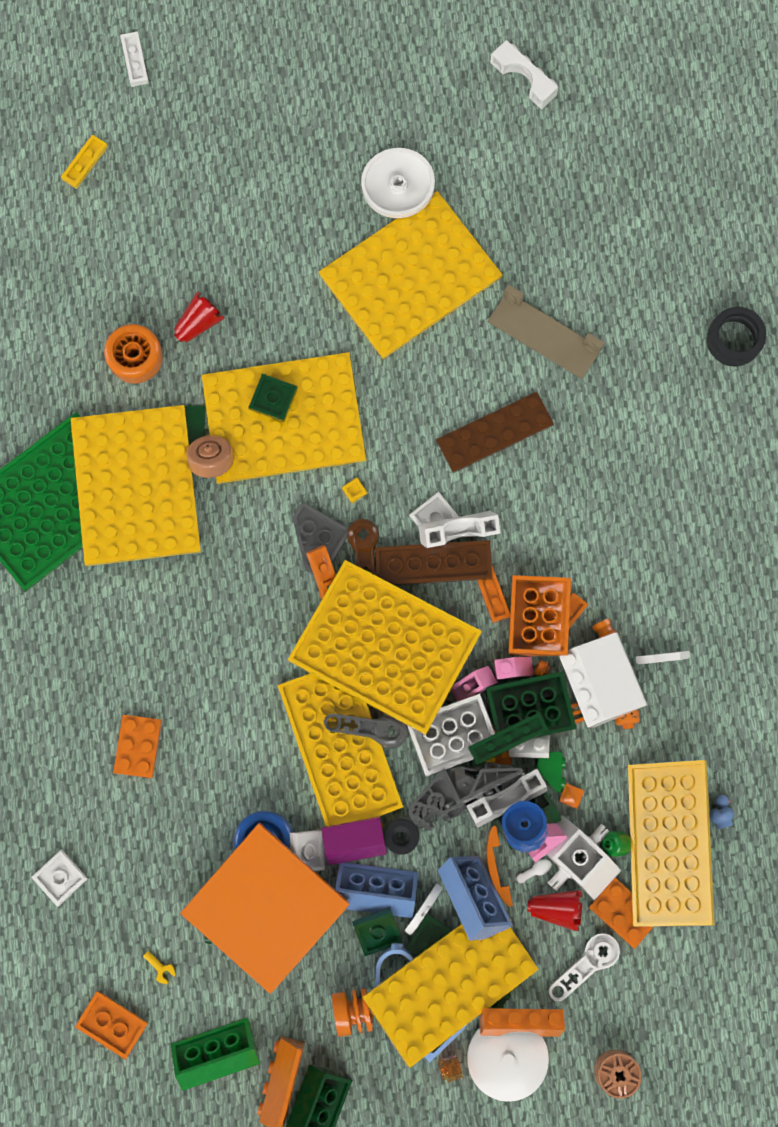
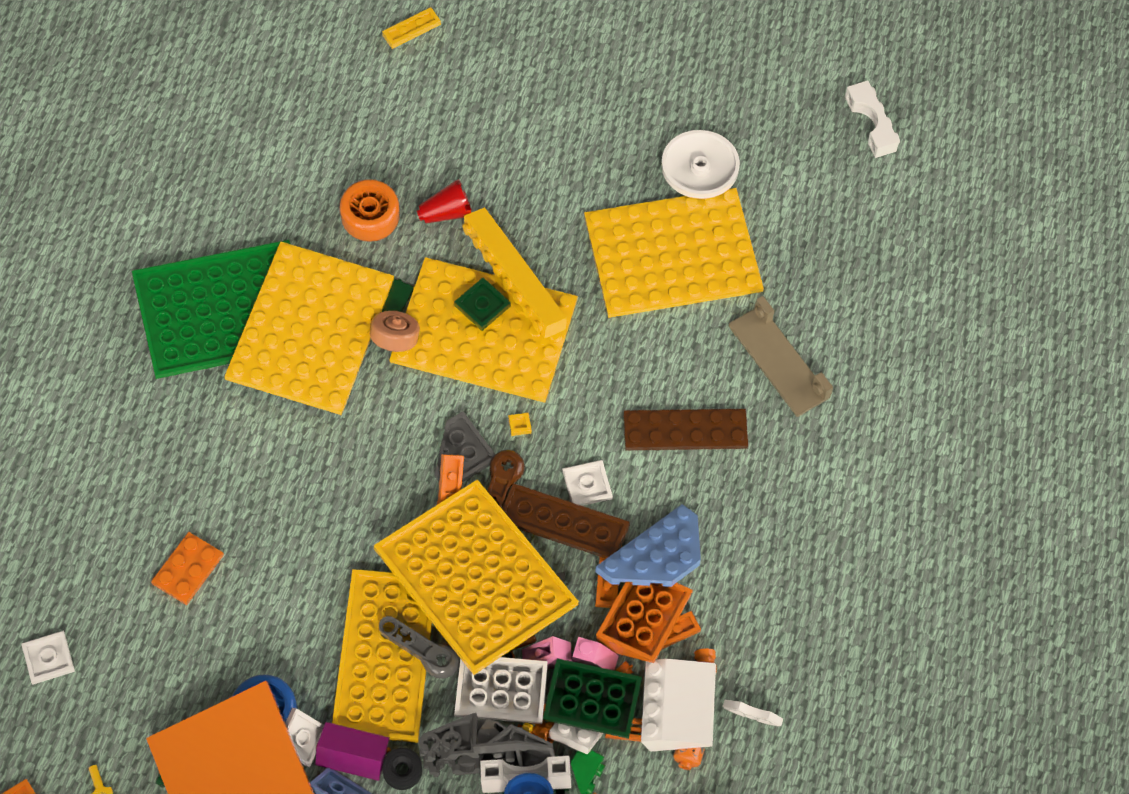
camera: 20 degrees right, 15 degrees down
(286, 356) = (514, 273): none -> yellow brick
(442, 531) = (604, 499): white arch -> none
(507, 739) = (553, 713): dark green plate -> none
(527, 558) = (659, 554): none -> medium blue plate
(751, 321) = (979, 419): black tyre -> none

